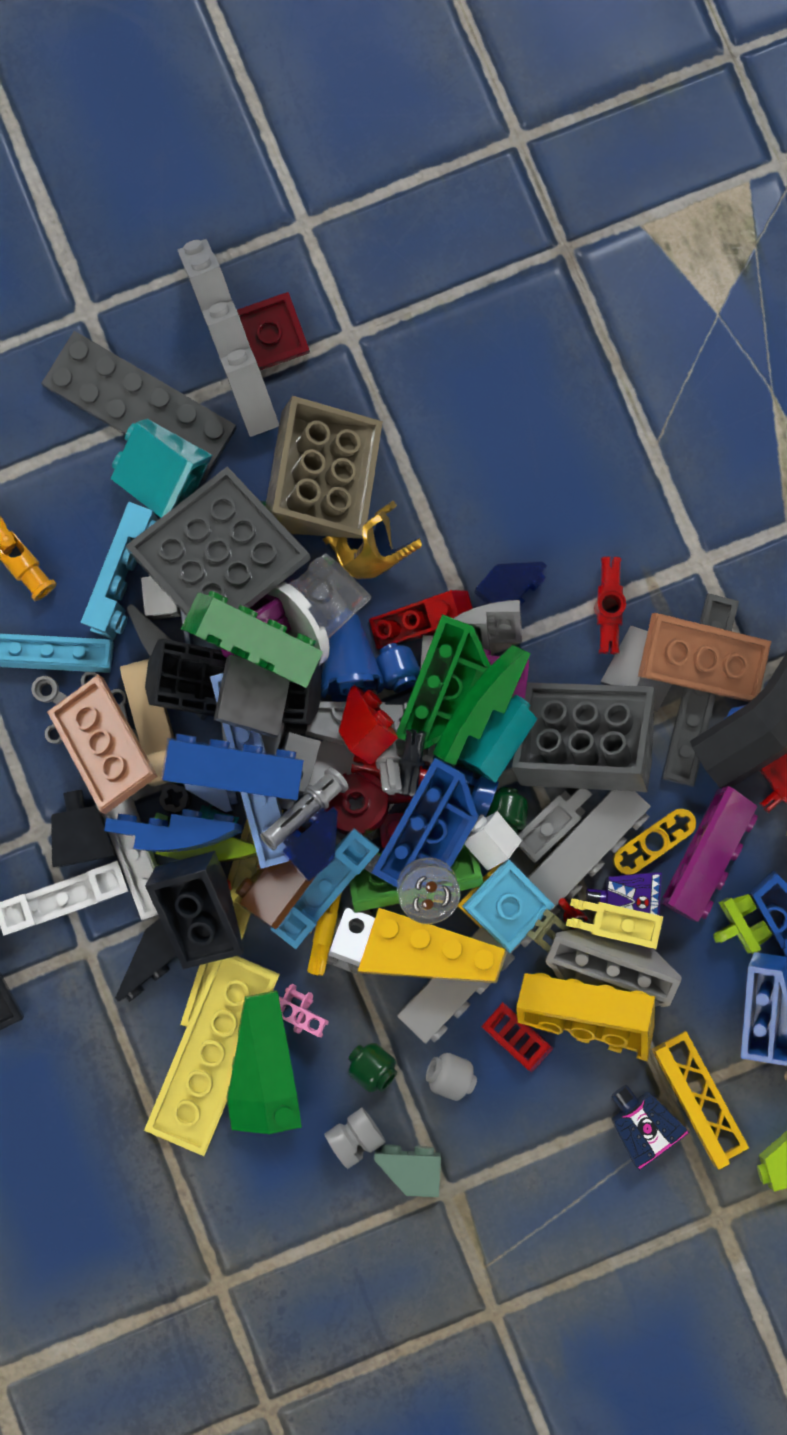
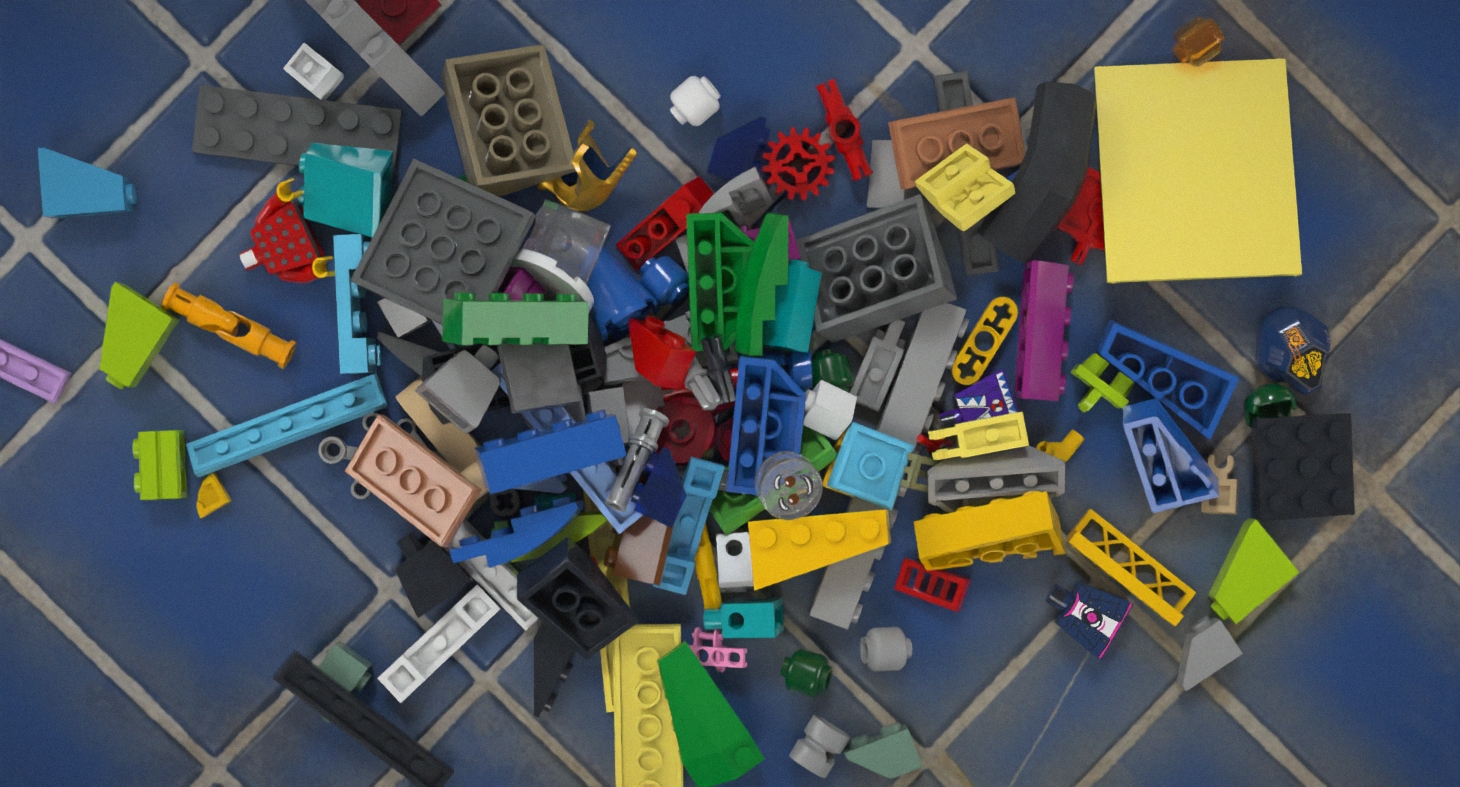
camera: 20 degrees left, 5 degrees up
(87, 492) = (286, 240): none -> red torso
(176, 362) = (314, 72): none -> white slope
(180, 679) = (463, 387): none -> light grey torso
(352, 999) = (761, 618): none -> teal torso
(491, 525) = (695, 101): none -> white head
(571, 621) = (795, 149): none -> red gear
(687, 967) = (1064, 449): none -> yellow arm
(695, 697) = (965, 187): none -> light yellow slope
(736, 1205) = (1205, 652): none -> light grey slope

